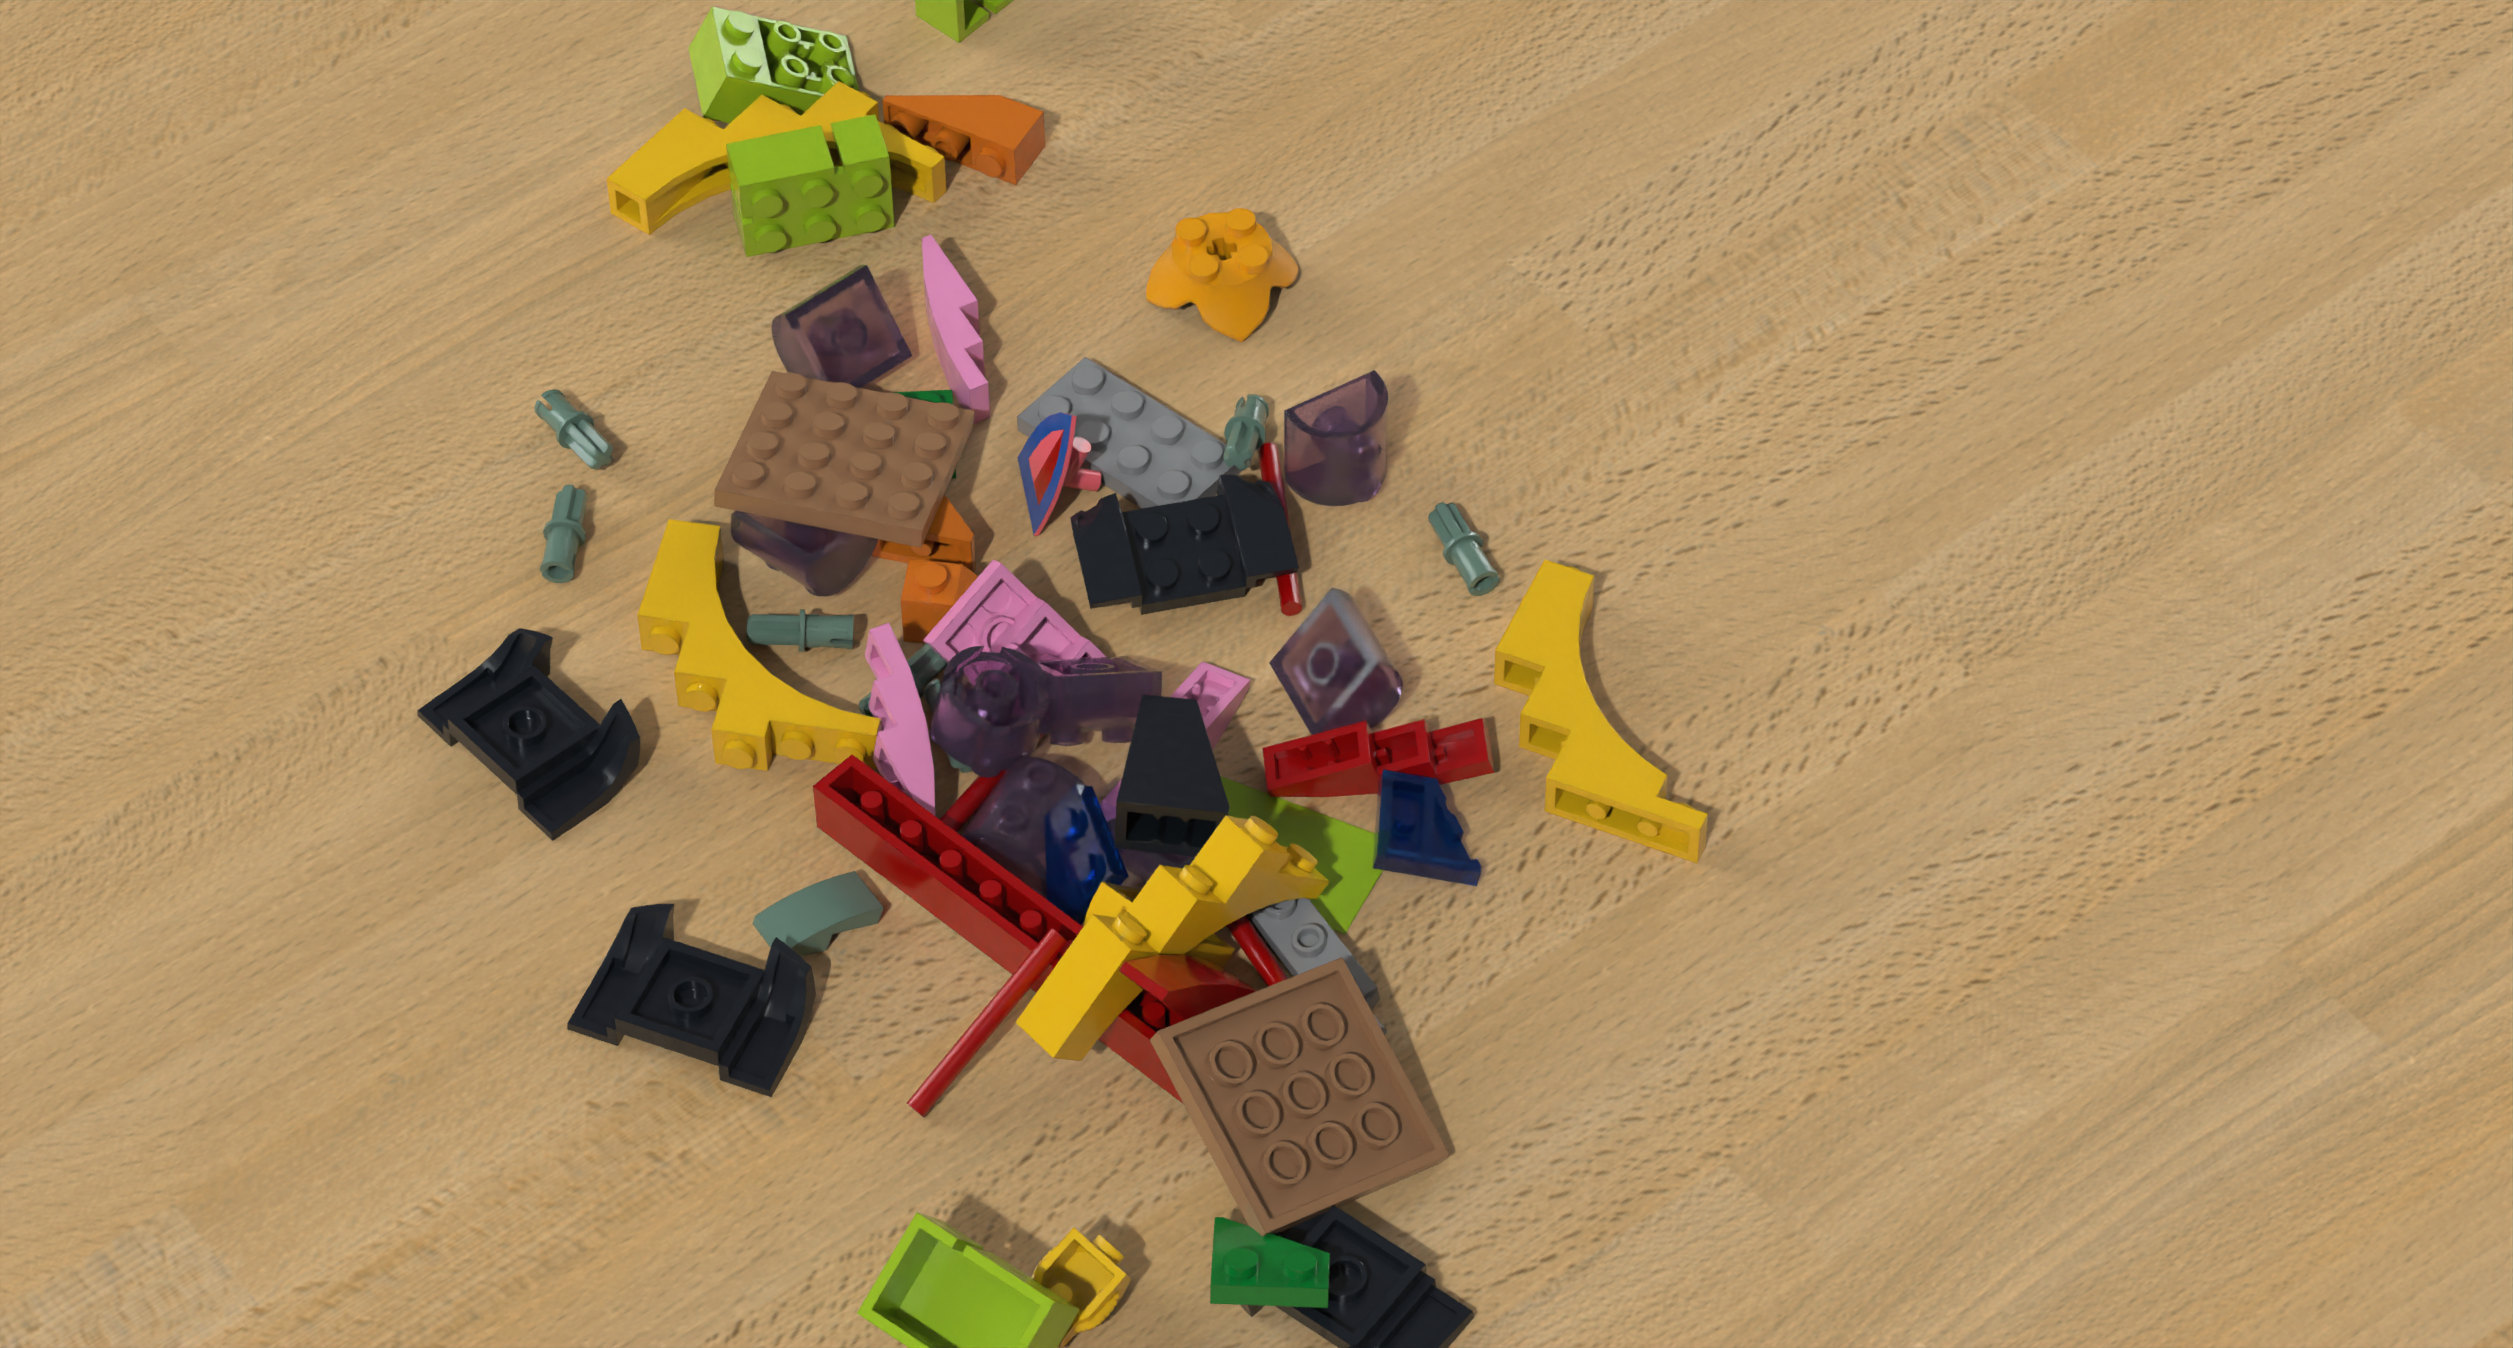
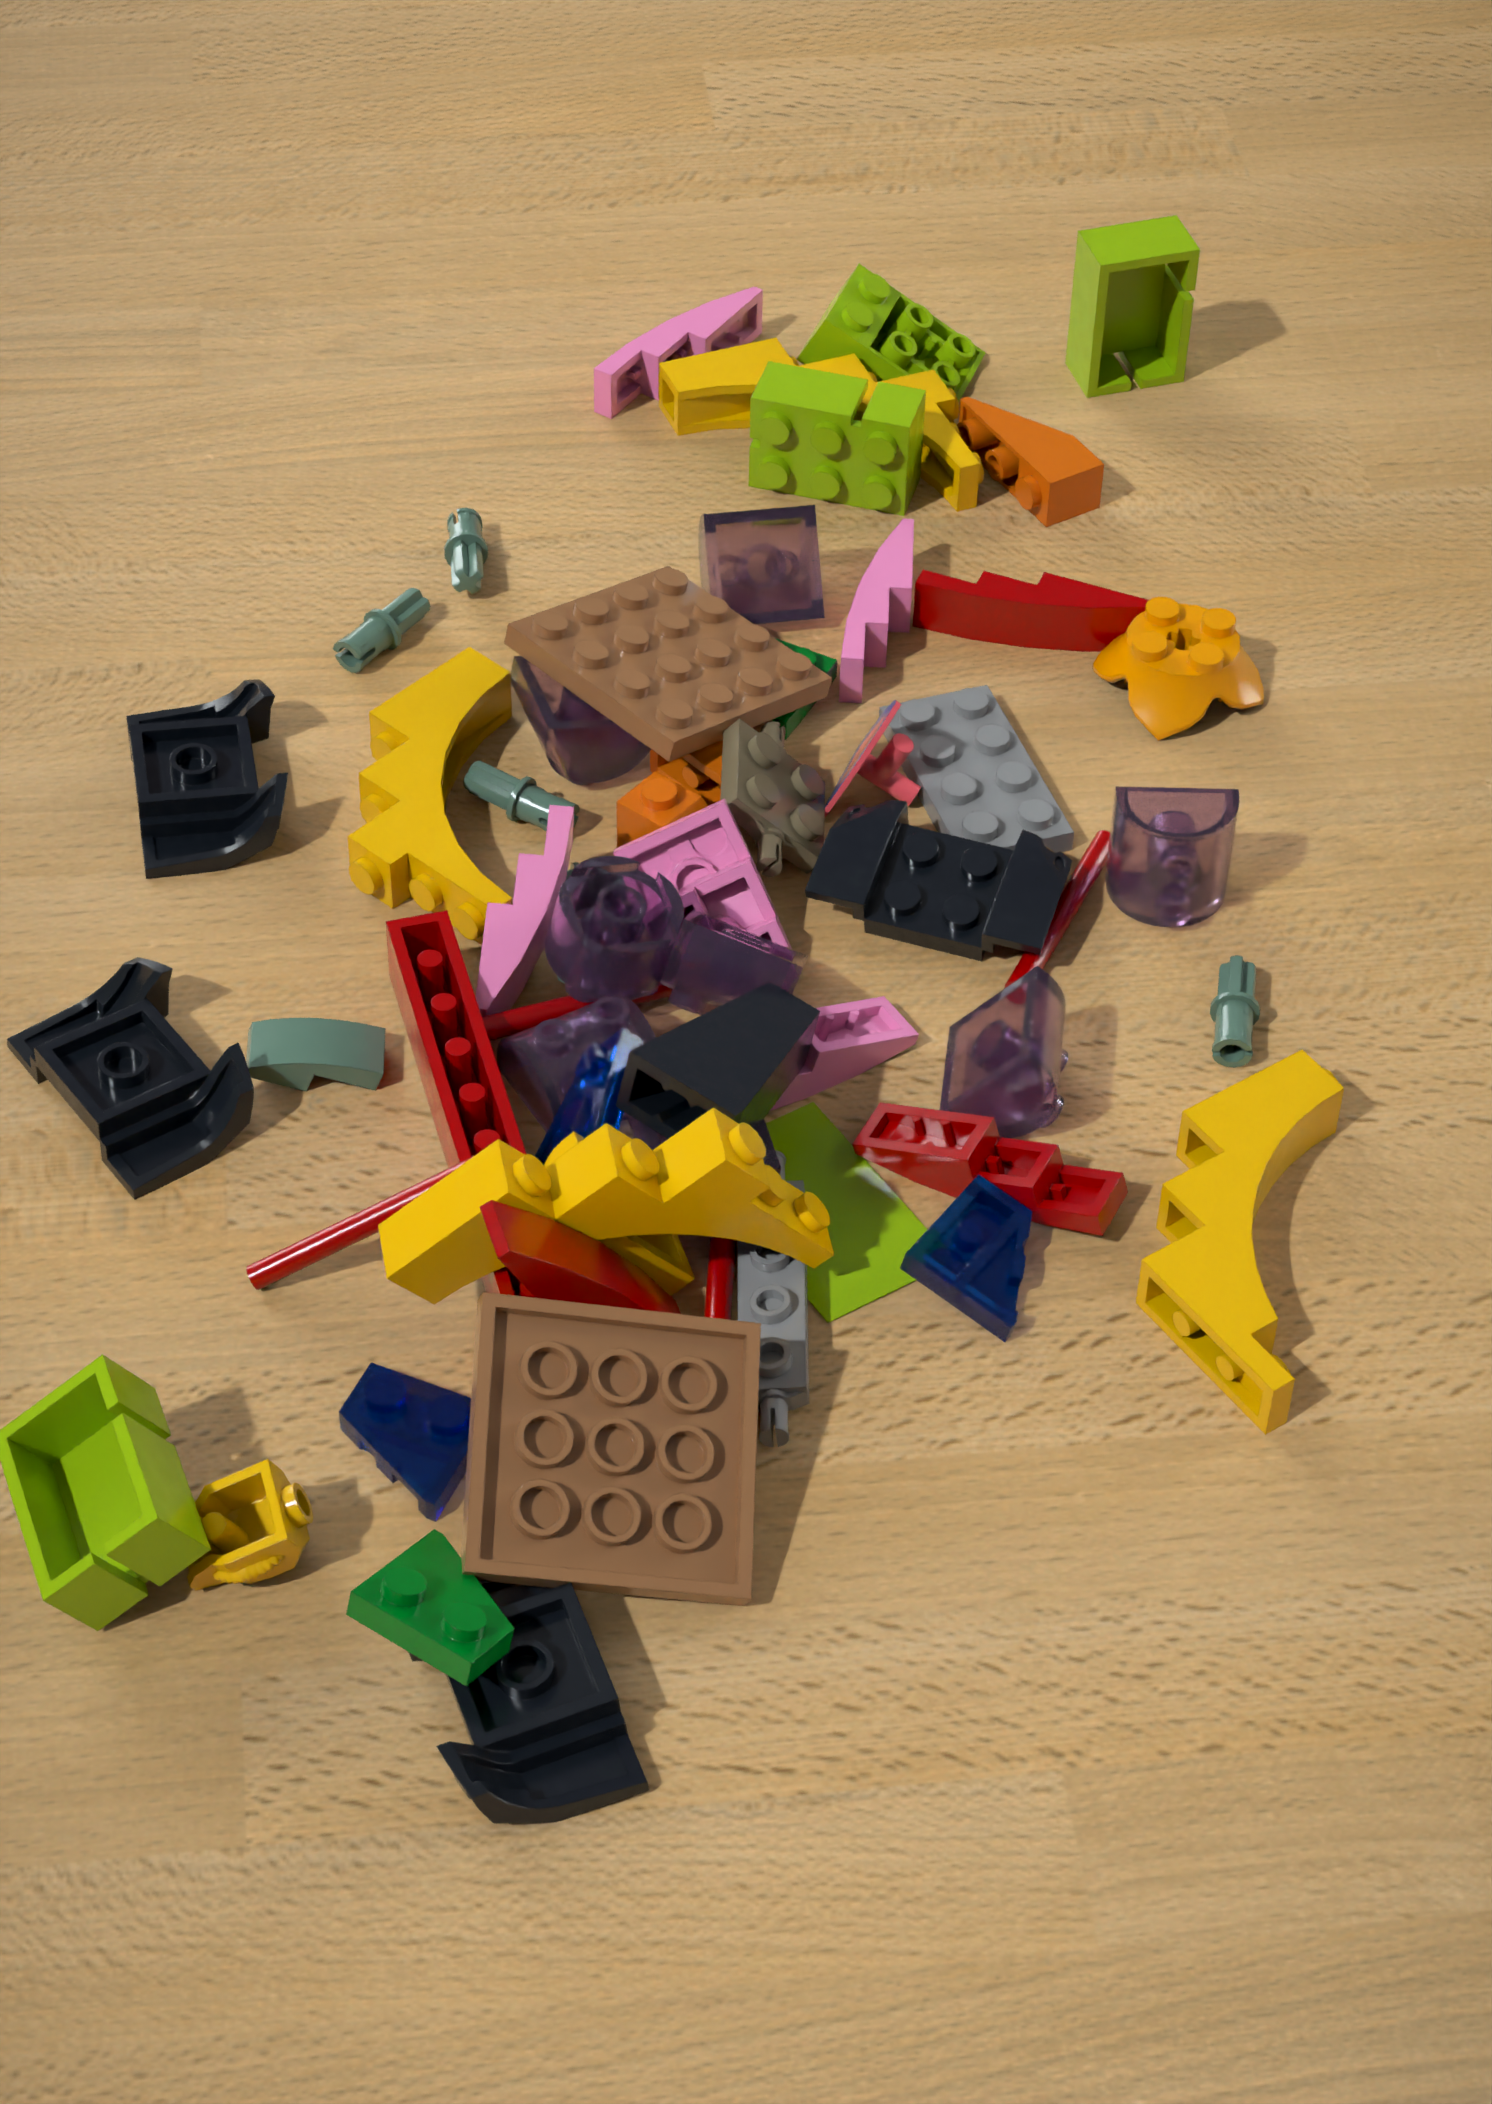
camera: 30 degrees right, 5 degrees down
(600, 148) = (704, 329): none -> bright pink slope
(1007, 533) = (773, 797): none -> dark tan plate
(1065, 280) = (1017, 613): none -> red slope
(1125, 1160) = (412, 1433): none -> clear blue wing
(1245, 431) = (1083, 811): sand green axle -> none

